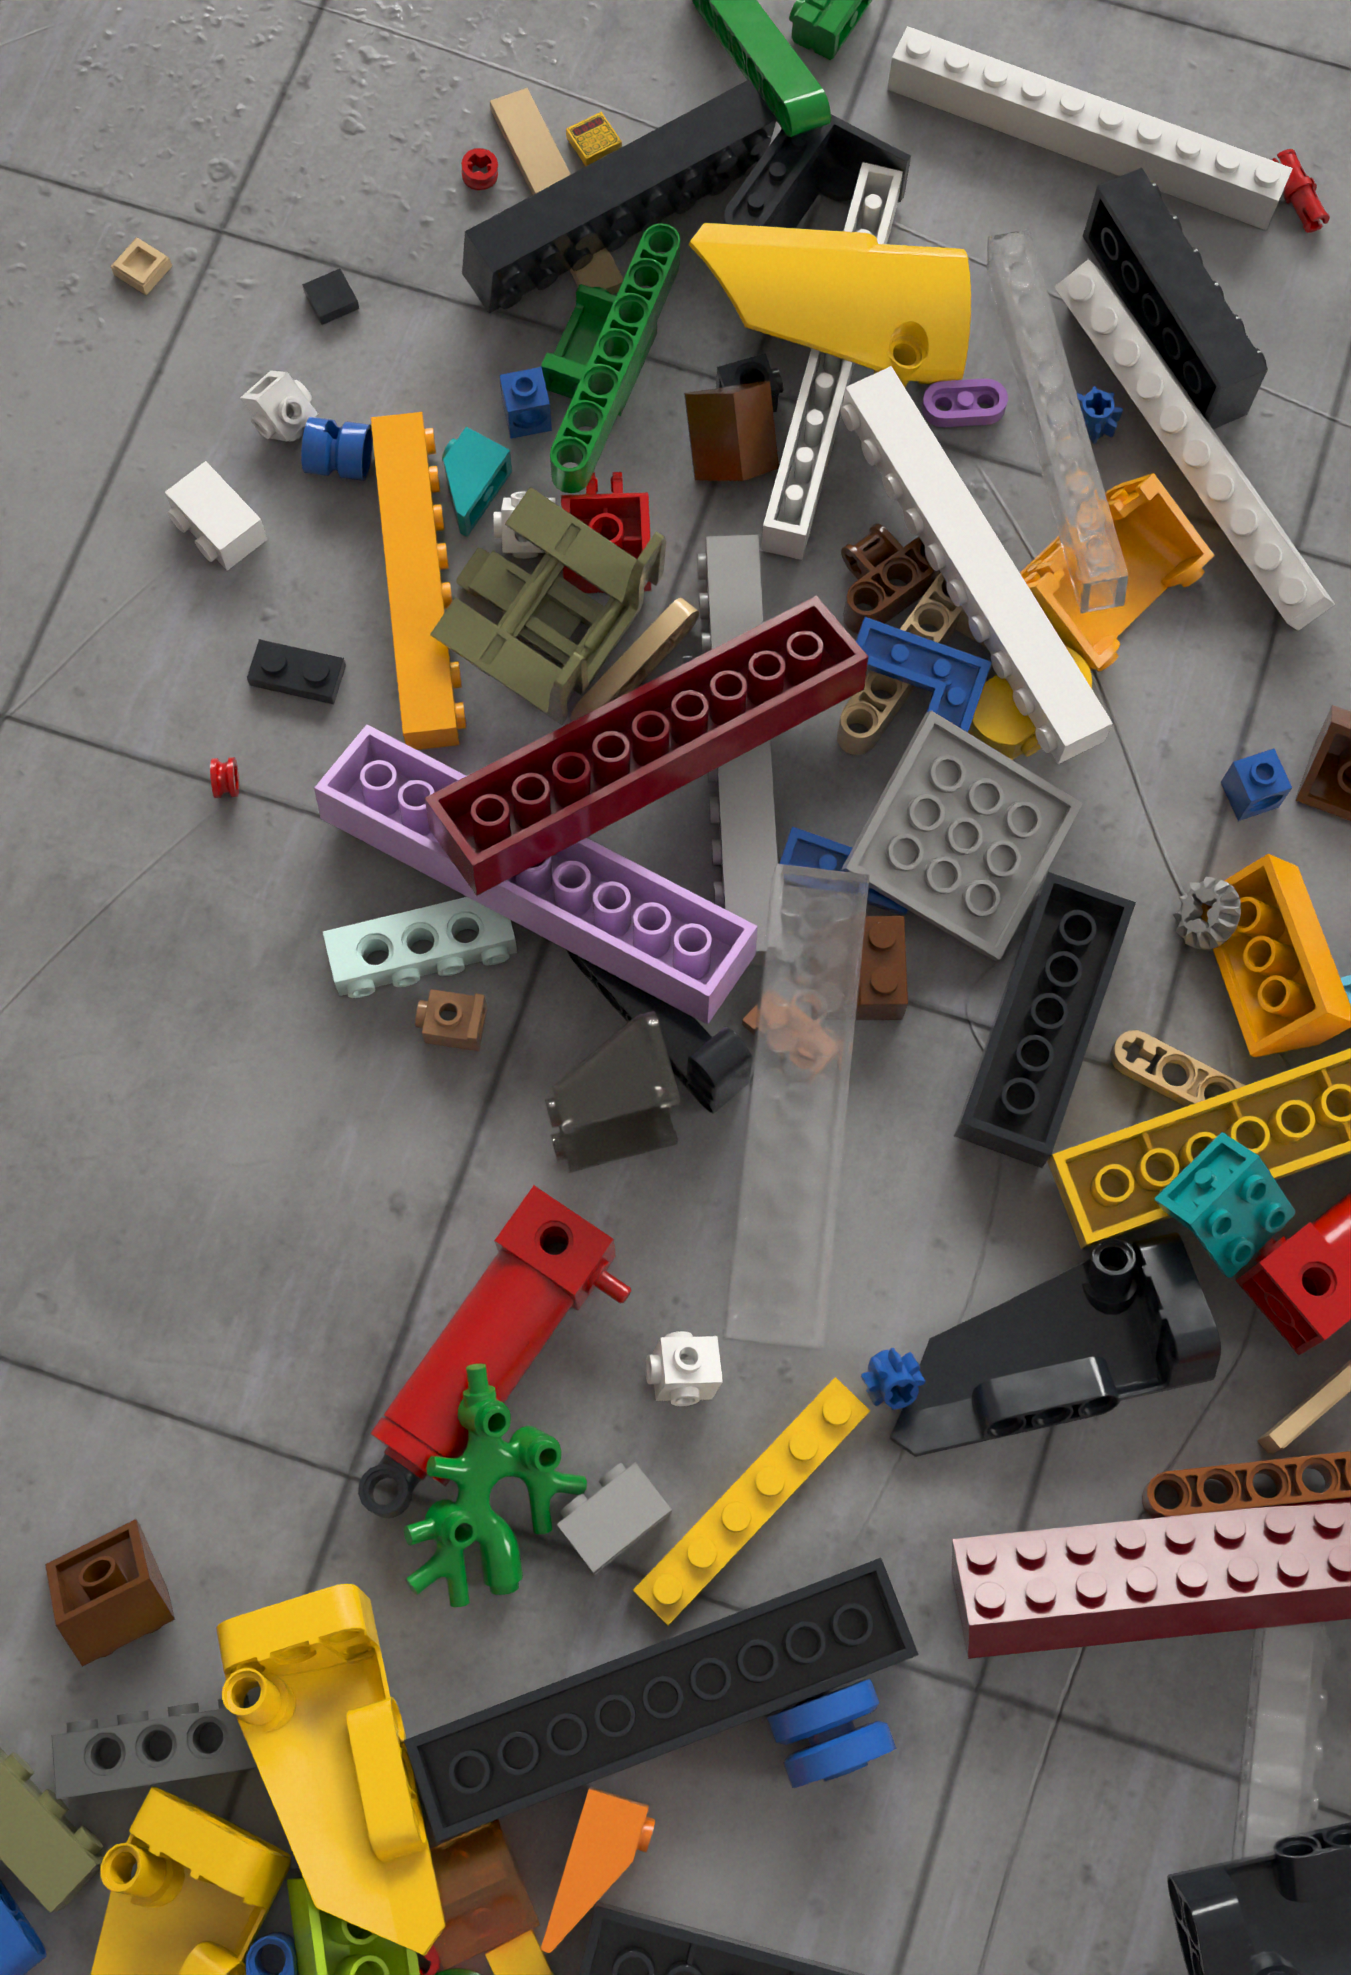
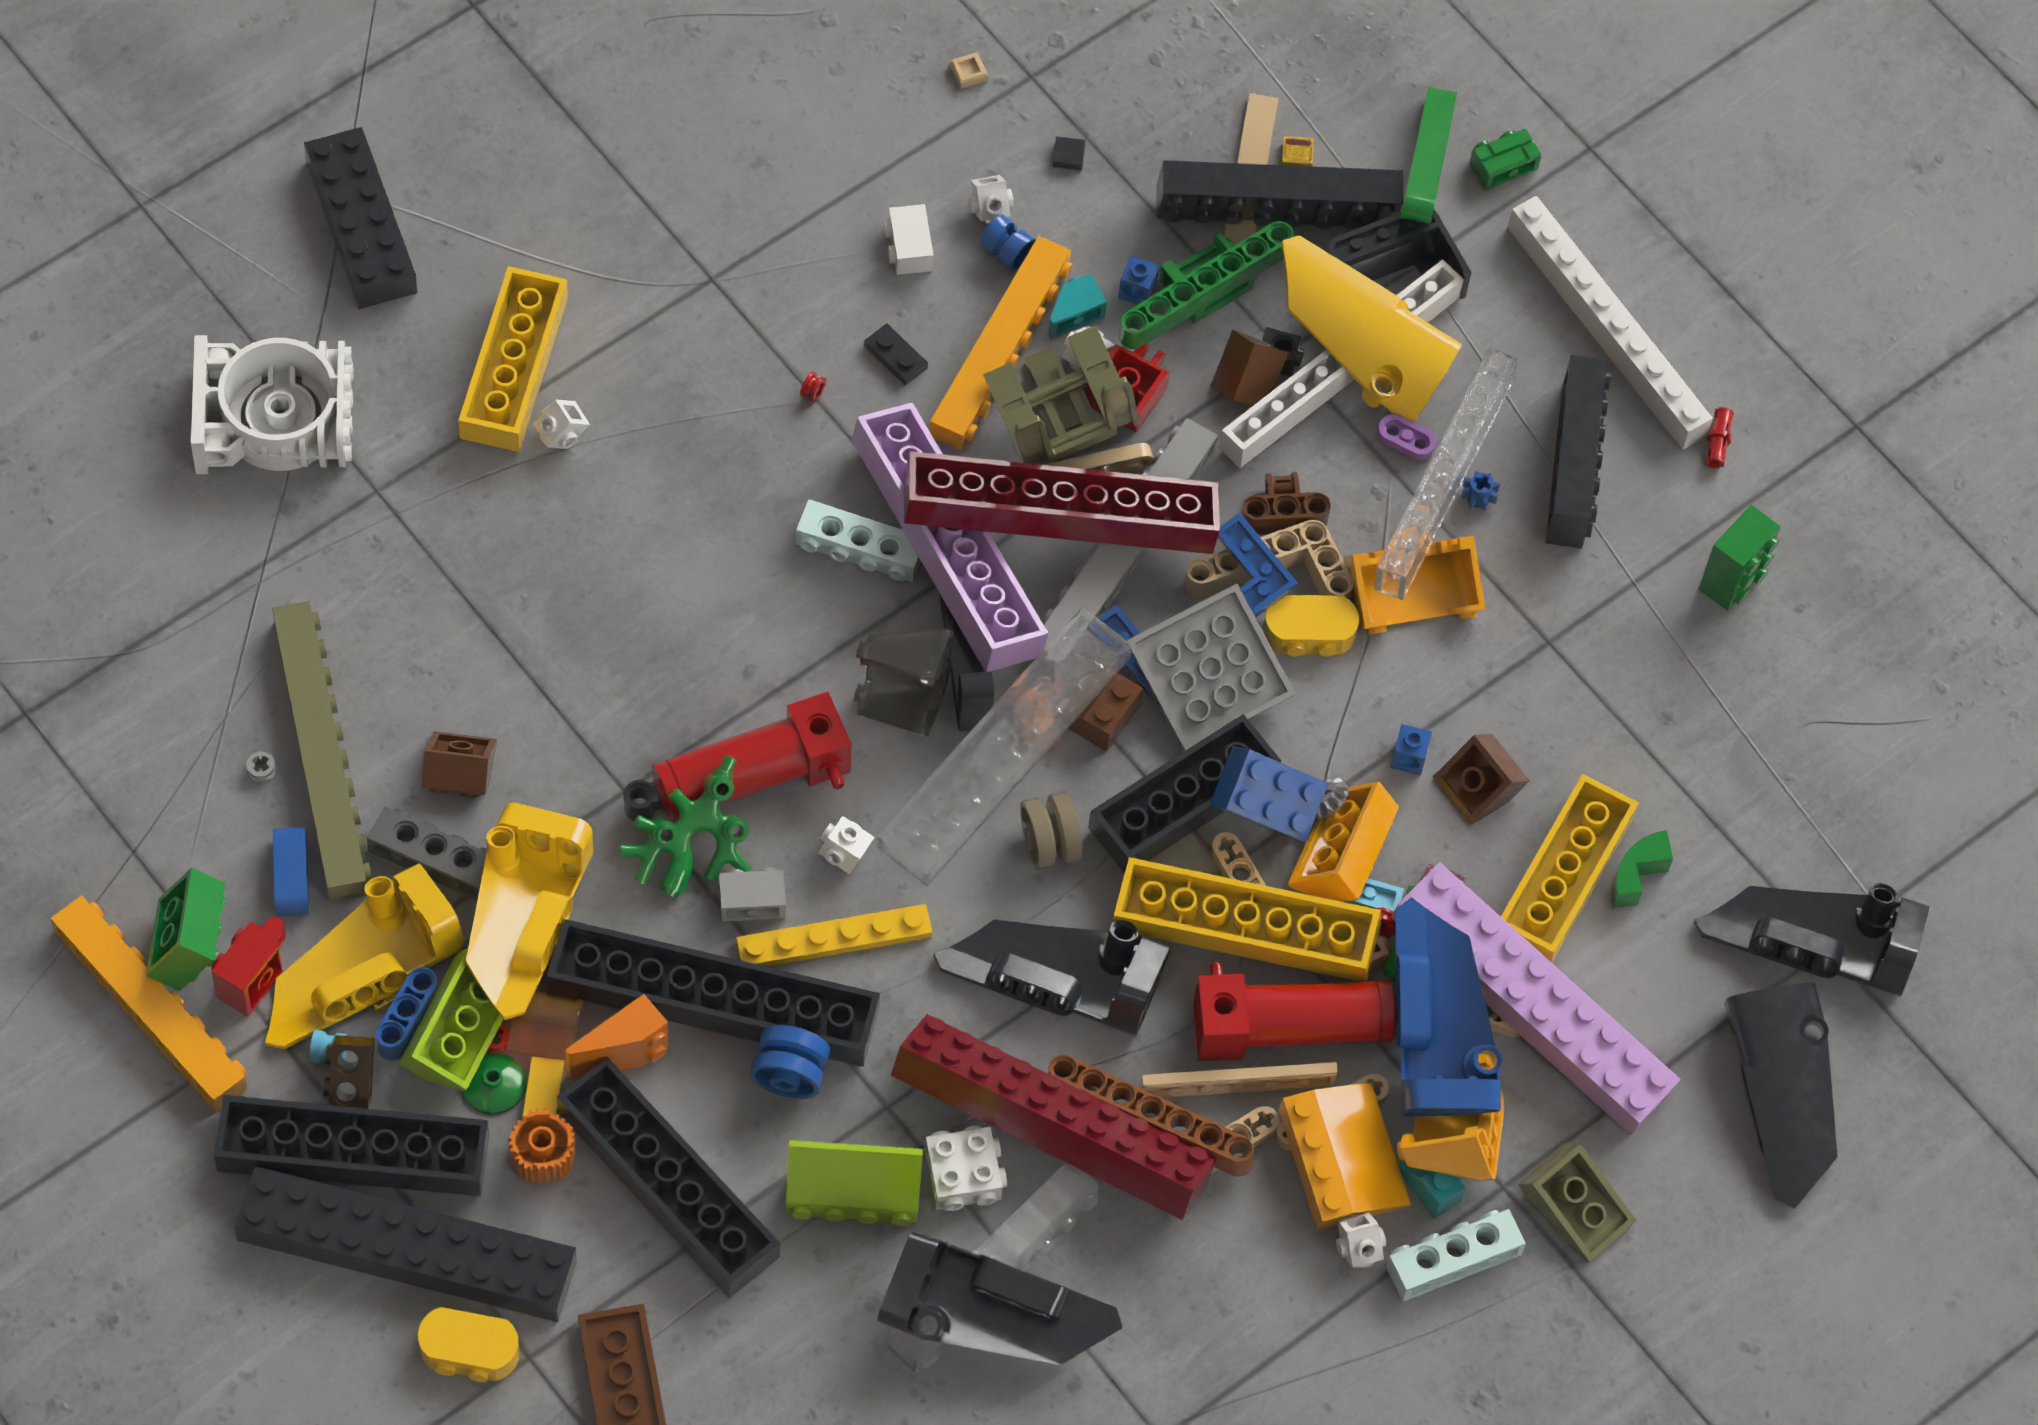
camera: 30 degrees right, 10 degrees down
(463, 1031) = (850, 600): medium nougat brick -> none
(481, 158) = (1220, 125): red bush -> none
(893, 1379) = (961, 916): blue gear -> none
(927, 1178) = (1051, 830): none -> dark tan wheel
(975, 566) = (1329, 524): white brick -> none
(1034, 1855) = (853, 1182): none -> lime slope
(1140, 1714) = (964, 1168): none -> white brick
(1156, 957) = (1269, 793): none -> blue brick
(1194, 446) = (1524, 542): white brick -> none
(1227, 1203) = (1205, 940): teal bracket -> none

